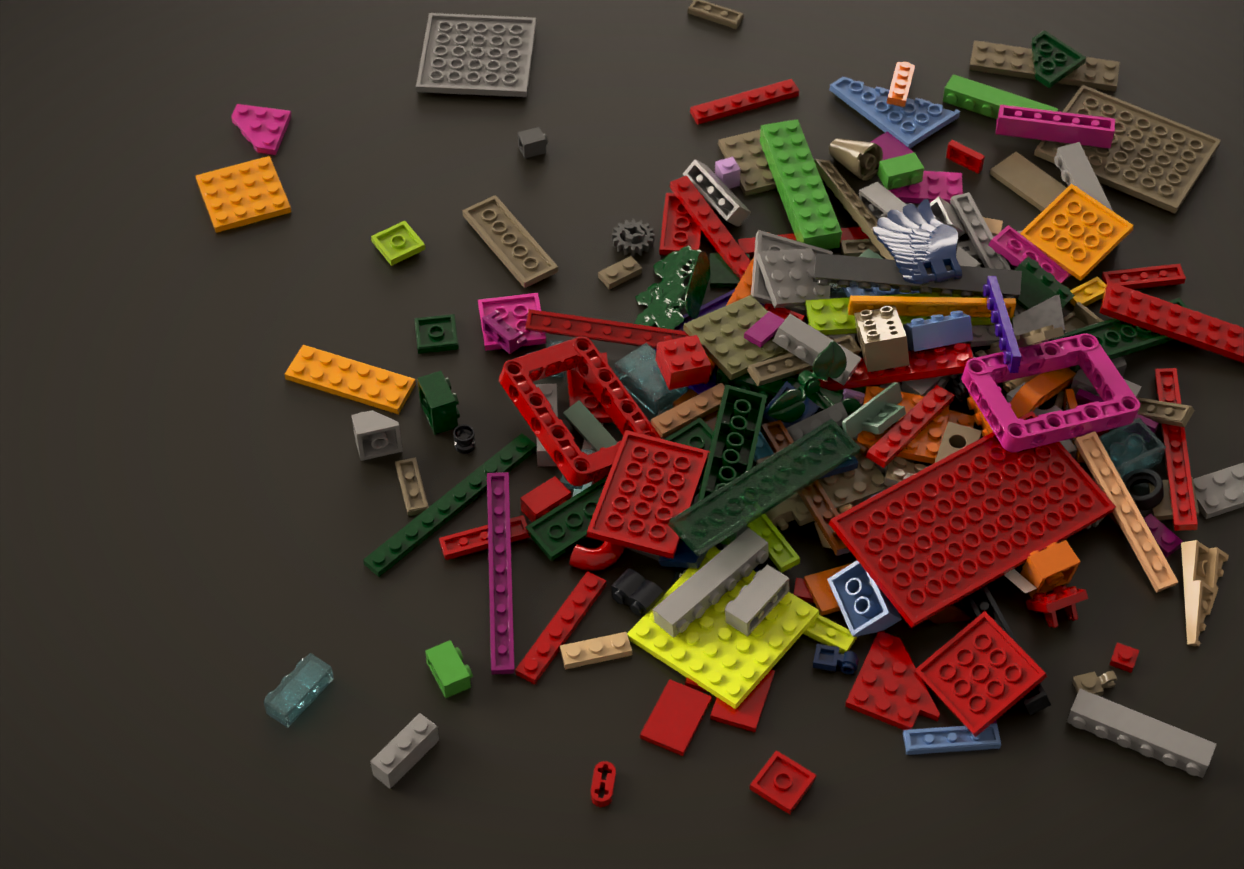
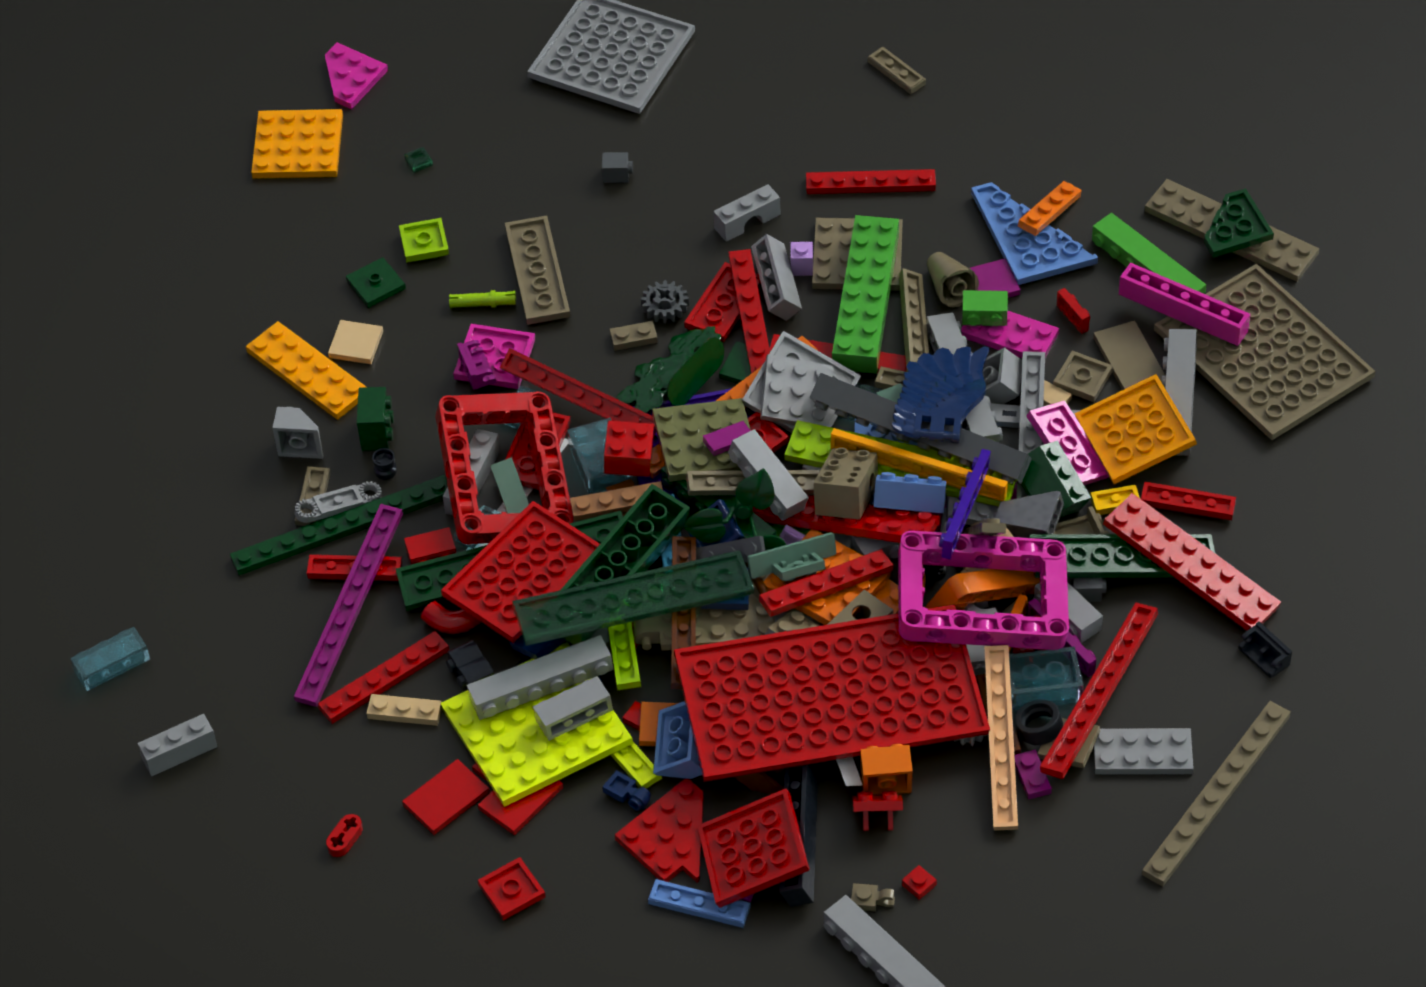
camera: 25 degrees right, 0 degrees up
(357, 179) = (418, 159): none -> clear green tile
(373, 289) = (375, 282): none -> dark green plate
(381, 343) = (355, 342): none -> tan tile
(436, 333) = (414, 347): dark green tile -> none
(439, 484) = (336, 501): none -> light grey plate
(448, 668) = (255, 682): bright green brick -> none
(479, 276) = (482, 299): none -> lime pin
(652, 156) = (731, 218): none -> light grey arch
(1003, 204) = (1083, 376): none -> dark tan plate
(1165, 412) = (1106, 648): dark tan tile -> none
(1200, 575) = (1046, 830): tan wedge -> none

